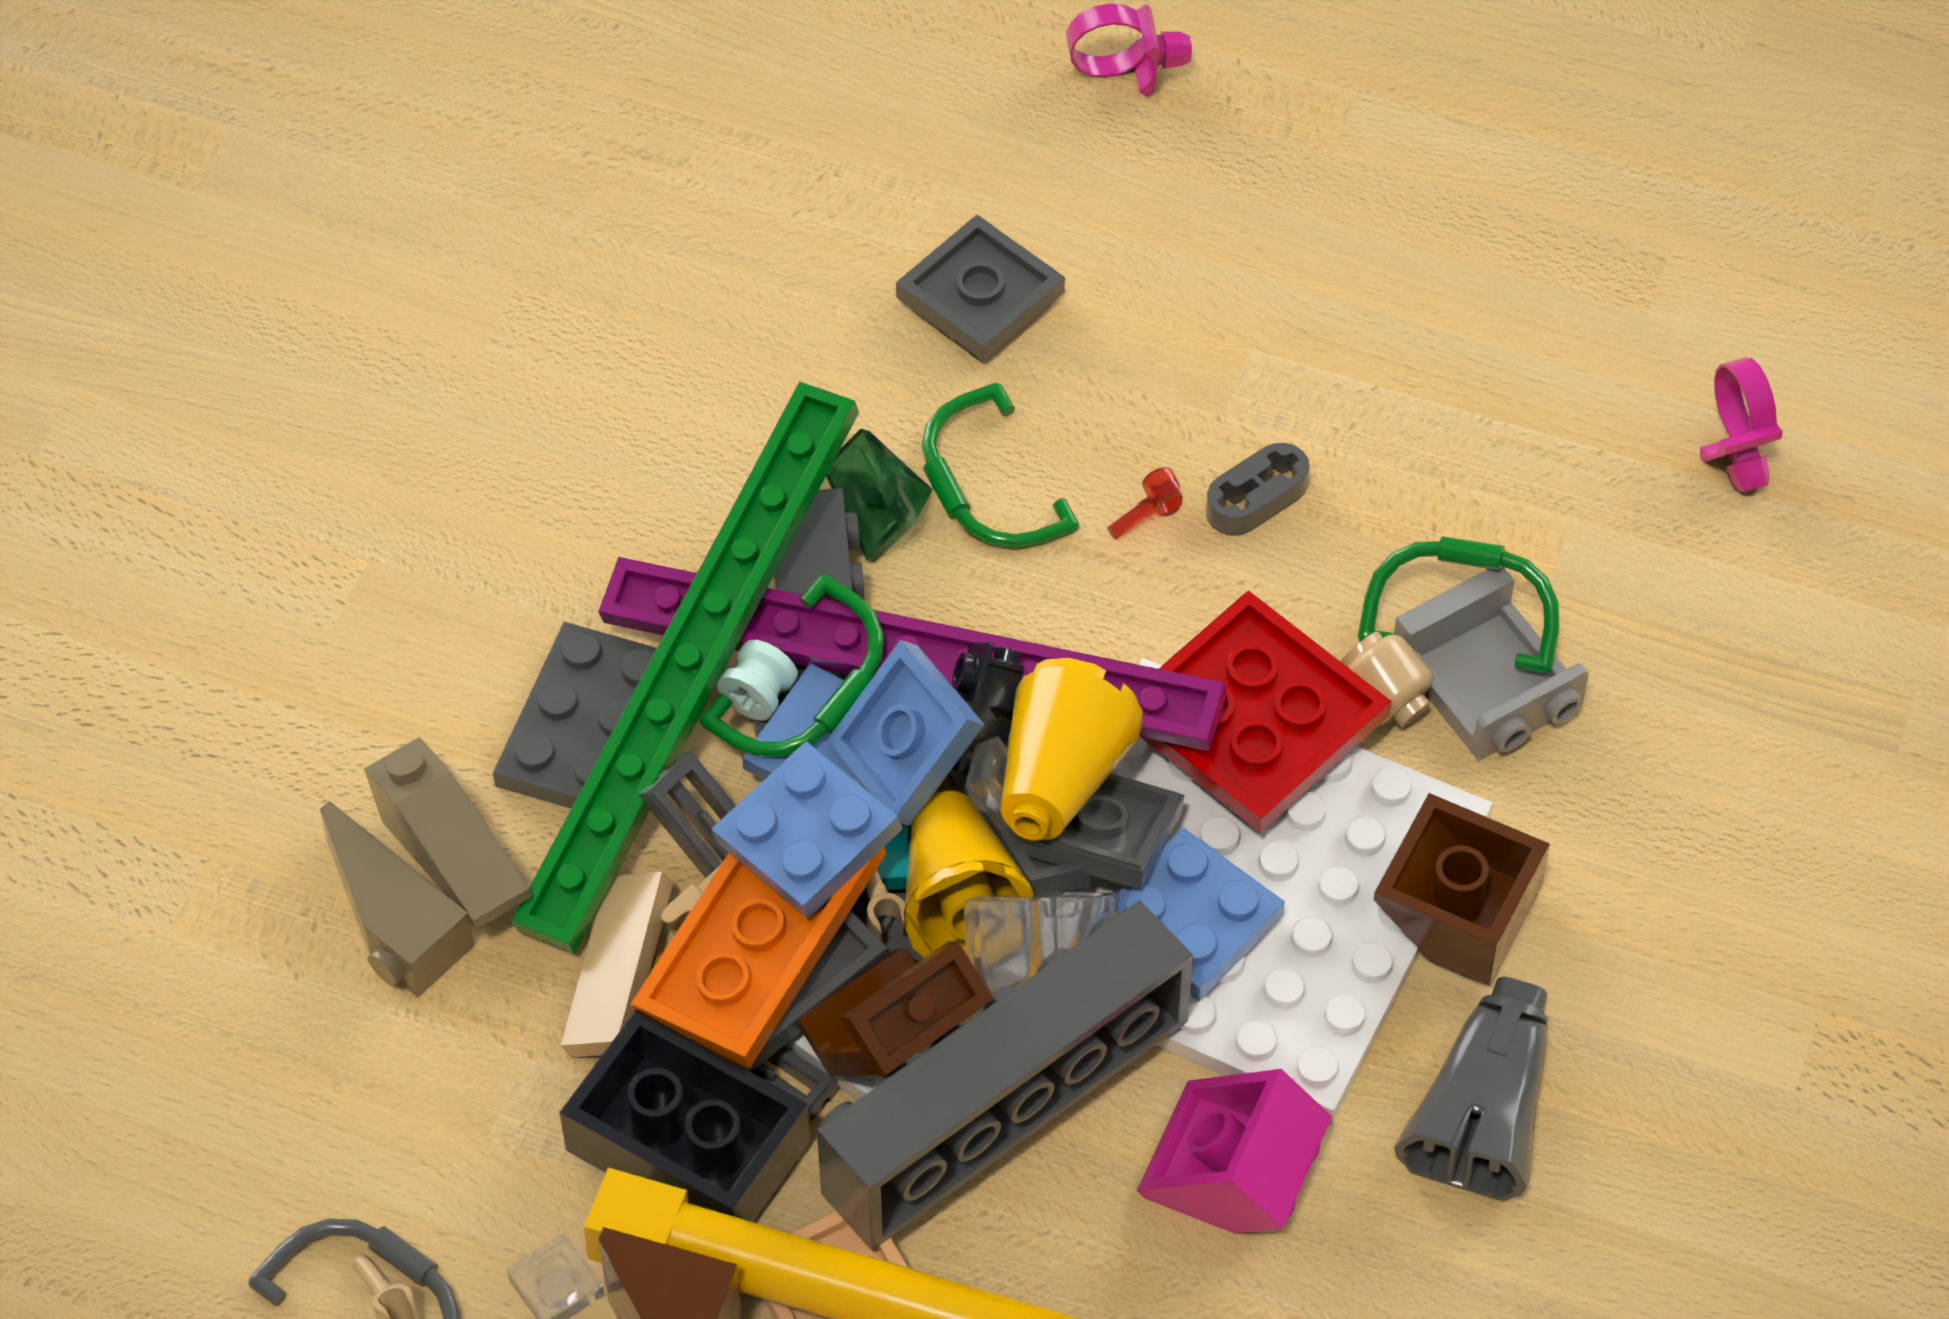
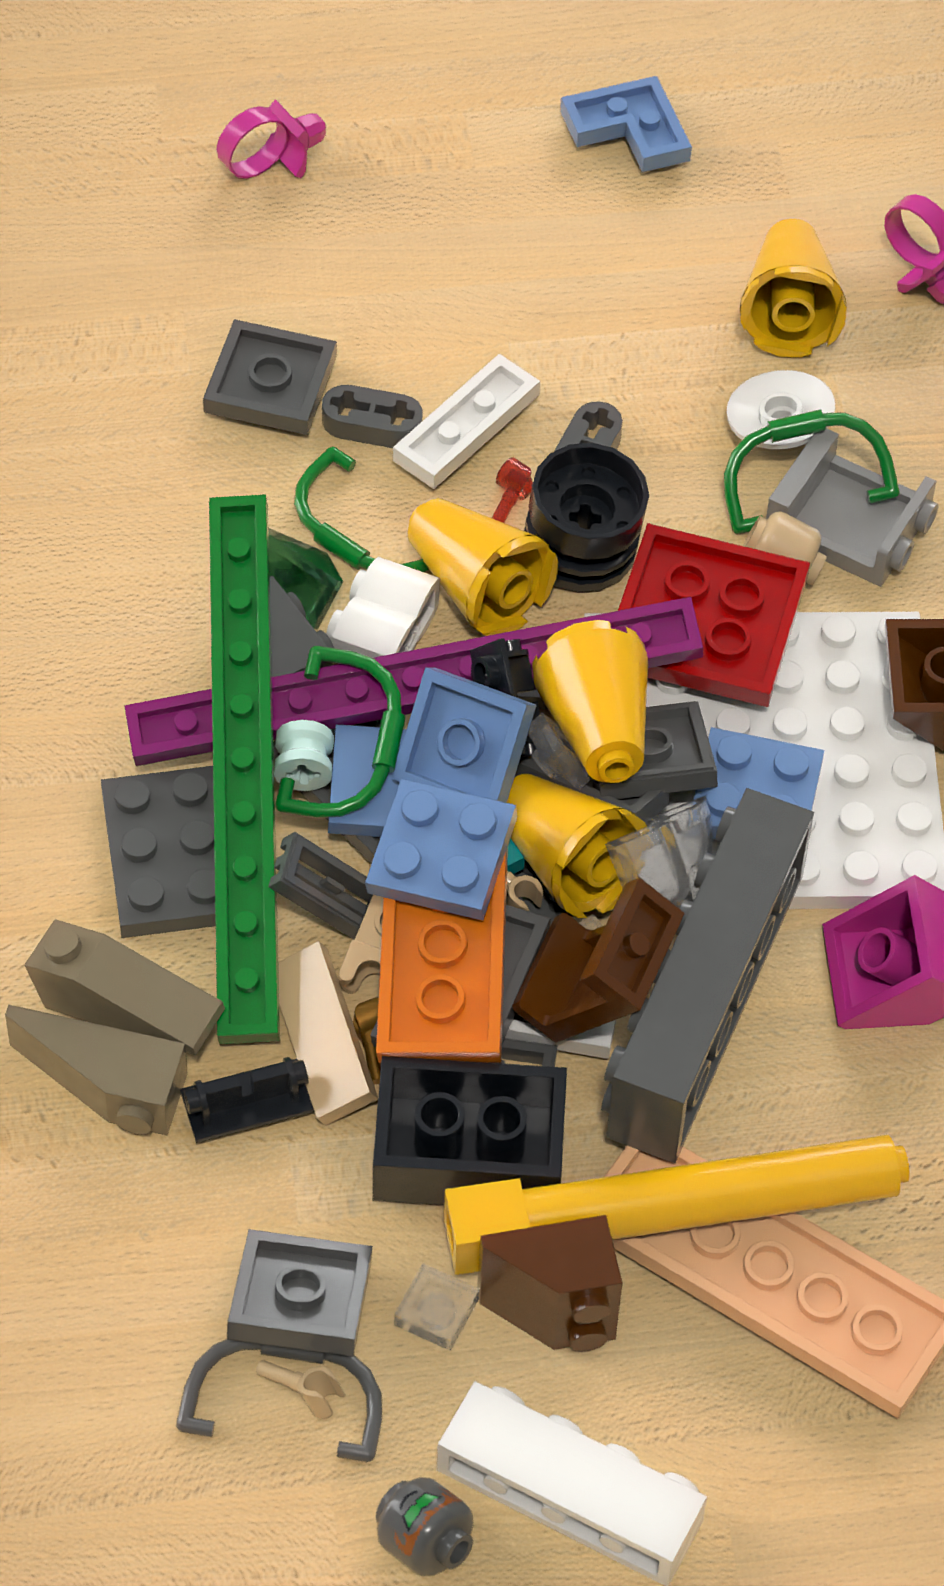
camera: 30 degrees left, 0 degrees up
(431, 1206) = (300, 1292): none -> plate
(504, 996) = (247, 1099): none -> black hinge
(940, 575) = (386, 610): none -> white brick
(1063, 567) = (483, 564): none -> yellow cone
(1064, 363) = (370, 415): none -> dark grey beam
(1148, 411) = (466, 421): none -> white plate
(1191, 554) = (590, 513): none -> black wheel
(1484, 516) = (776, 397): none -> white dish
(1525, 154) = (629, 110): none -> medium blue plate
(1566, 410) = (792, 293): none -> yellow cone

